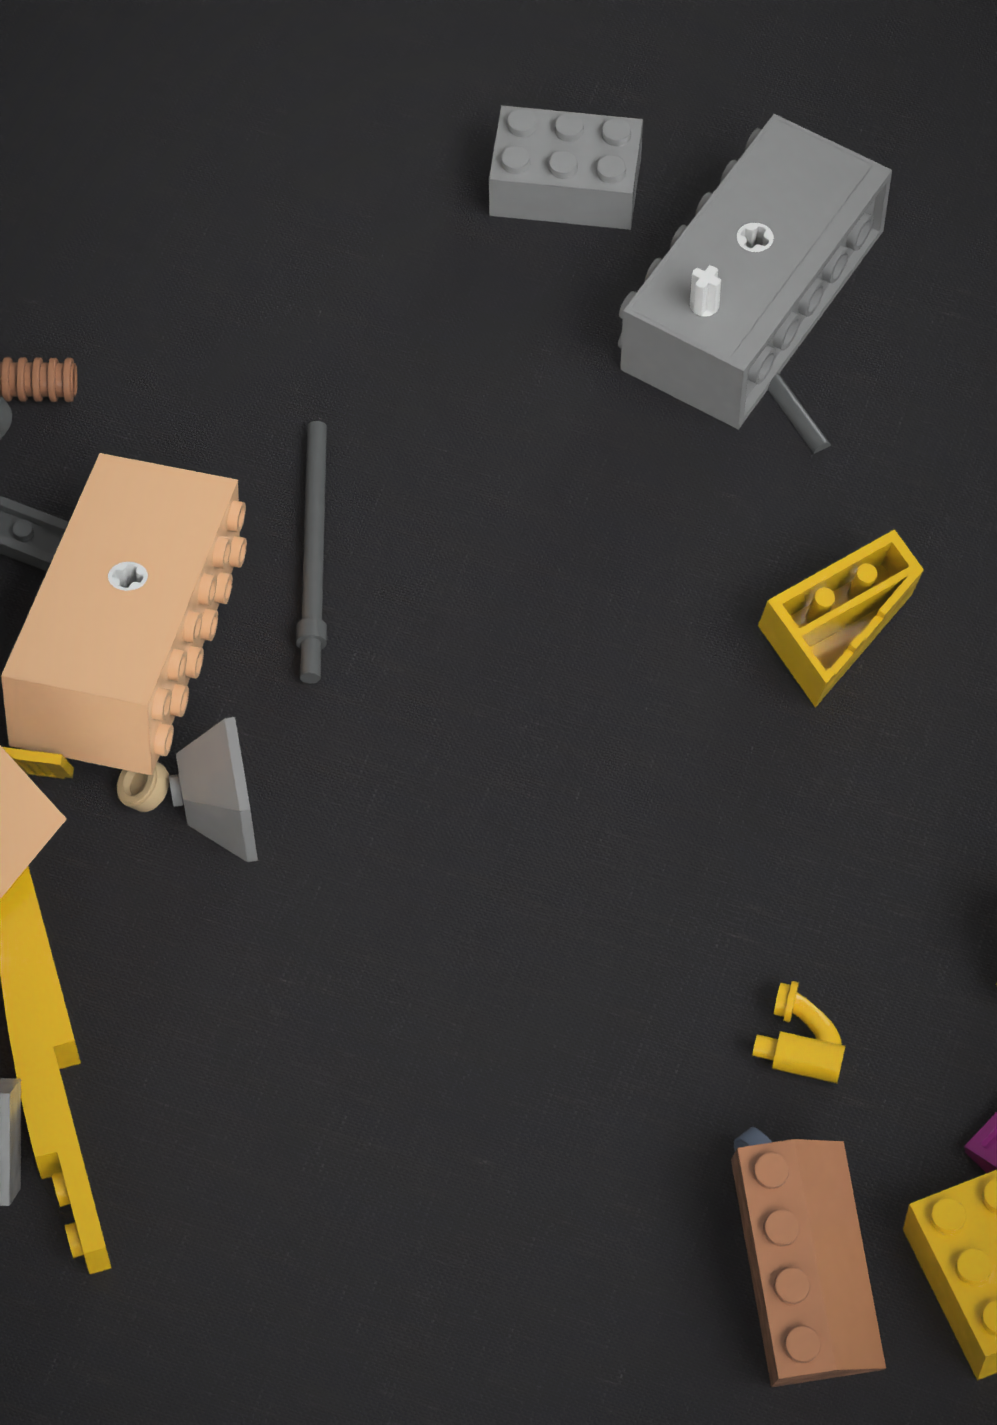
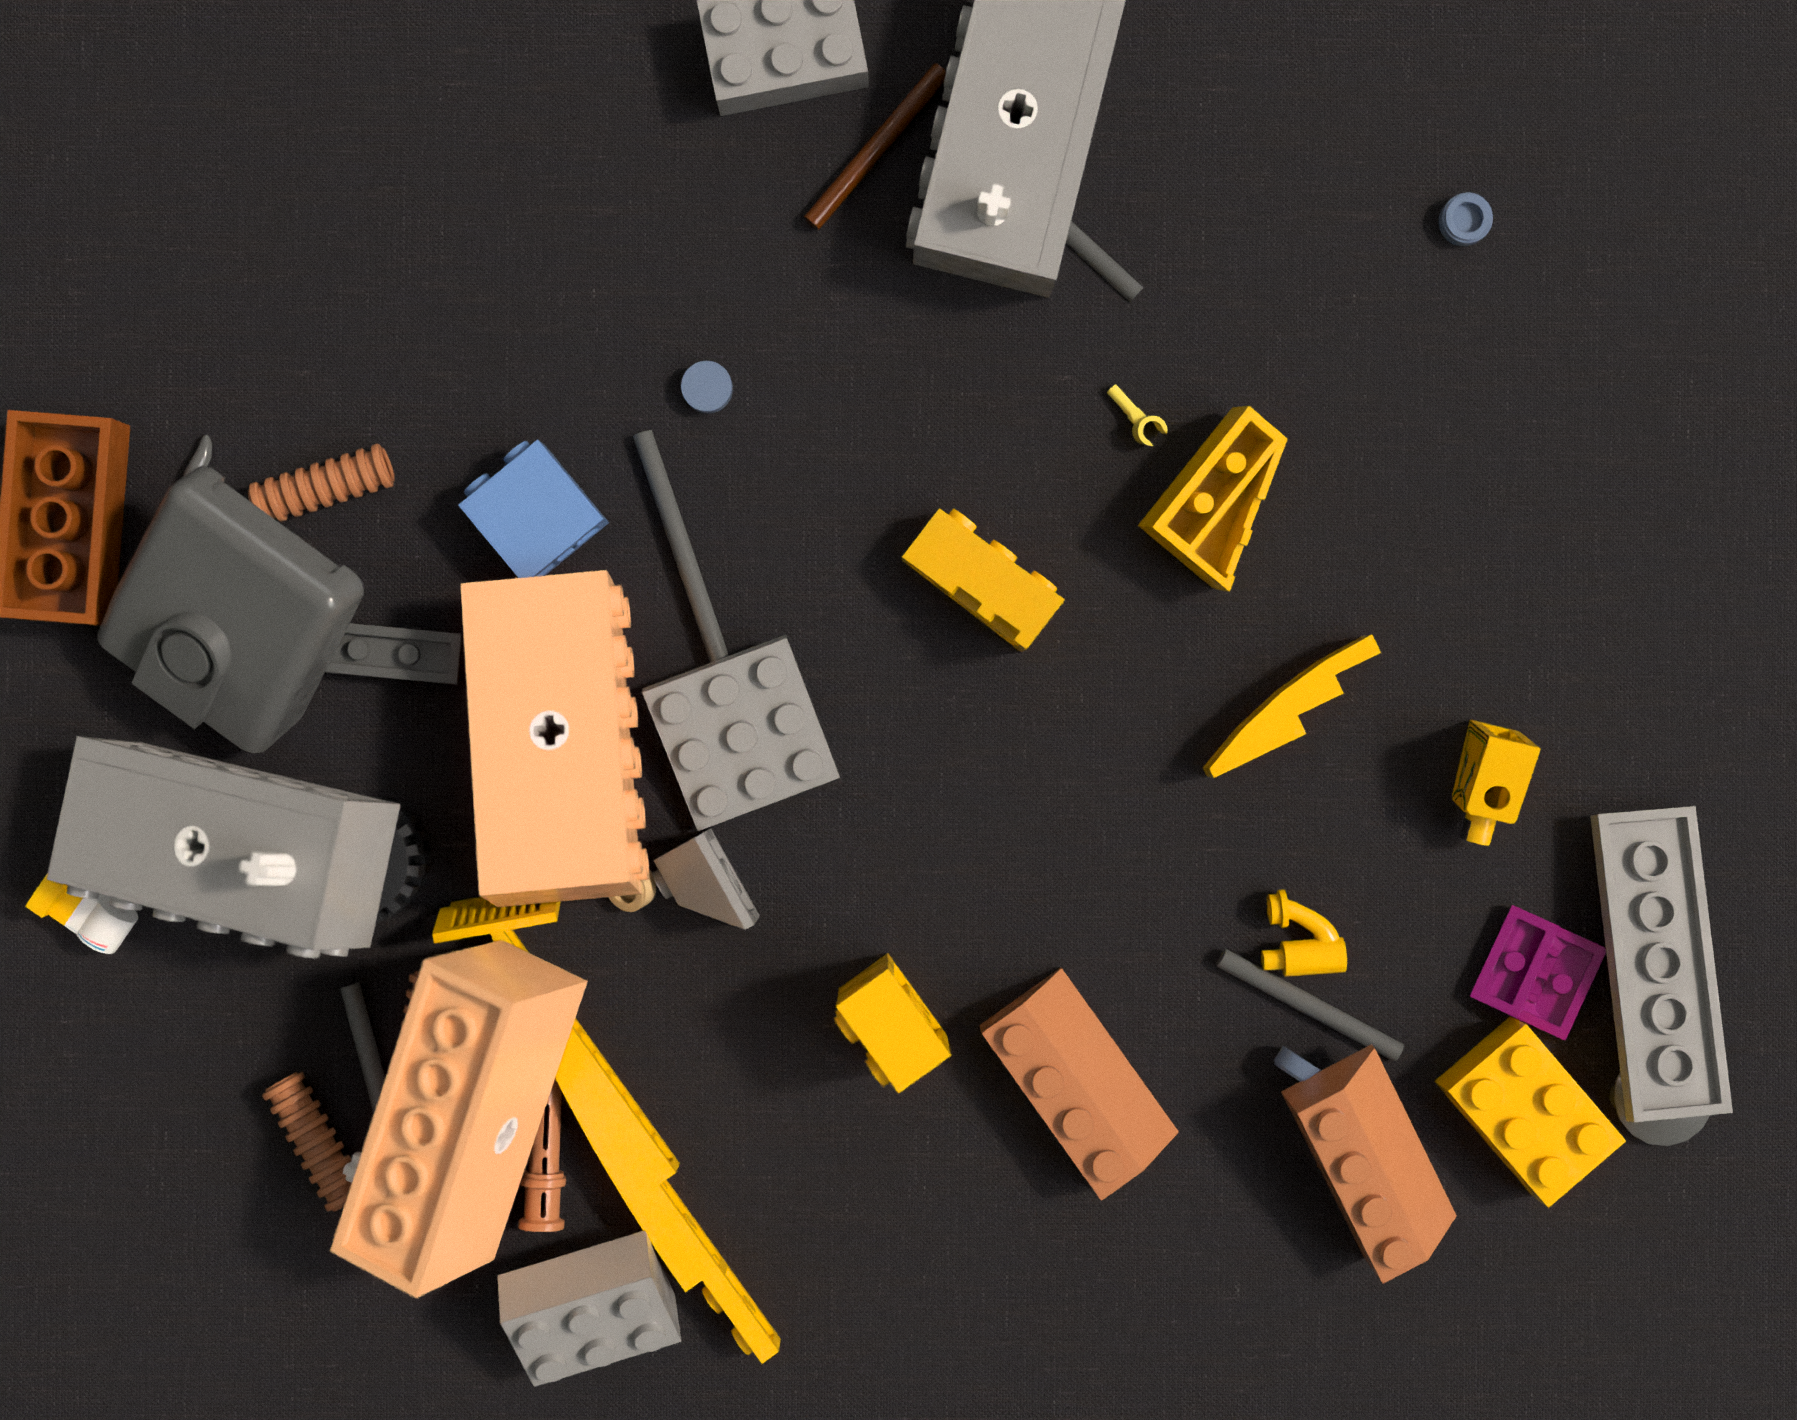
camera: 20 degrees left, 30 degrees up
(192, 434) = (532, 511): none -> medium blue brick
(307, 682) = (741, 732): none -> light grey plate
(349, 950) = (892, 1024): none -> yellow brick
(391, 406) = (707, 387): none -> sand blue tile
(521, 1100) = (1080, 1083): none -> nougat slope
(592, 622) = (983, 578): none -> yellow wedge
(602, 279) = (876, 146): none -> reddish brown bar
(786, 1101) = (1309, 1005): none -> dark grey bar
(789, 541) = (1136, 416): none -> light yellow hand
(839, 823) = (1277, 717): none -> yellow slope

